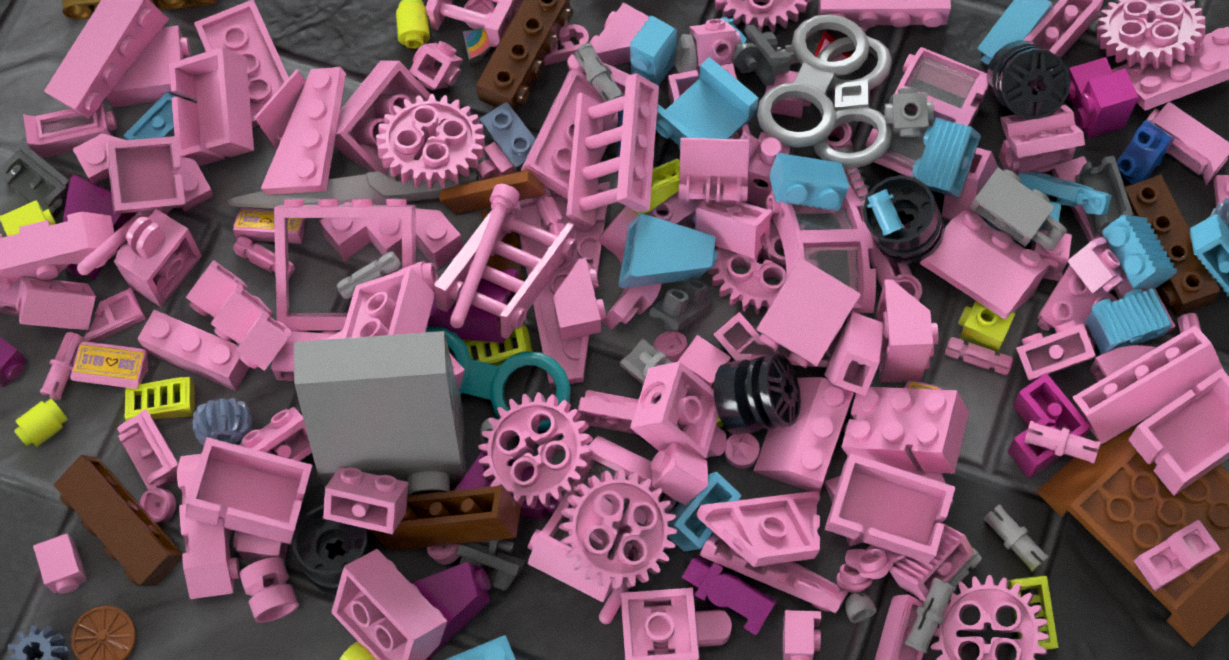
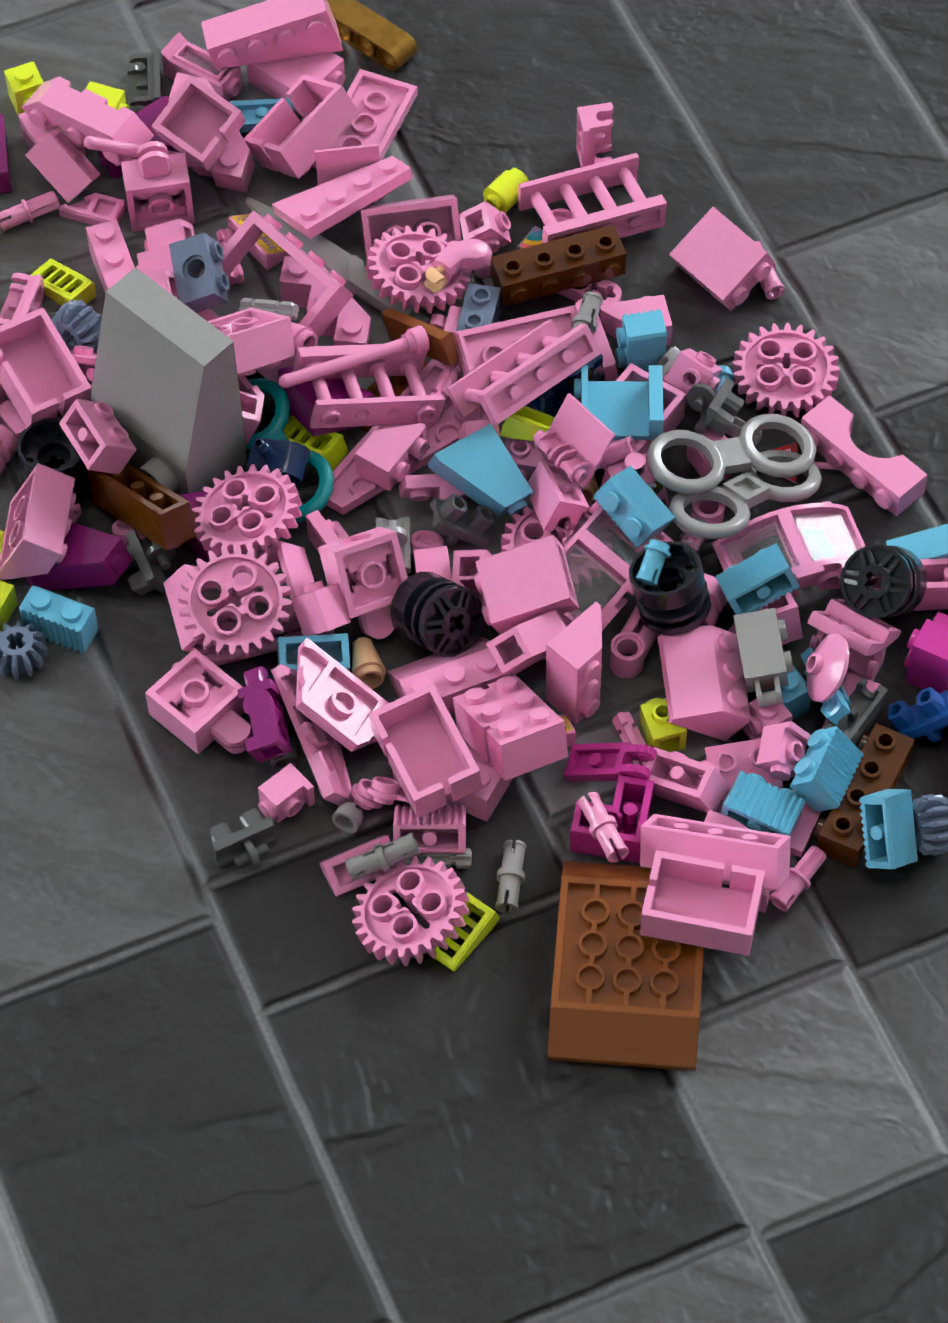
camera: 45 degrees right, 10 degrees down
(109, 365) = (55, 235): slope -> none
(259, 292) = (188, 259): none -> sand blue brick
(459, 99) = (463, 254): none -> bright pink arm
(506, 384) = (285, 455): none -> dark blue piece
(742, 450) = (394, 651): bright pink tile -> none
(742, 478) = (367, 663): none -> light nougat cone
(902, 123) = (763, 524): light grey brick -> none
(995, 386) = (607, 761): none -> dark pink hinge
(1077, 170) = (827, 668): none -> bright pink dish
(1177, 555) = (591, 972): bright pink slope -> none

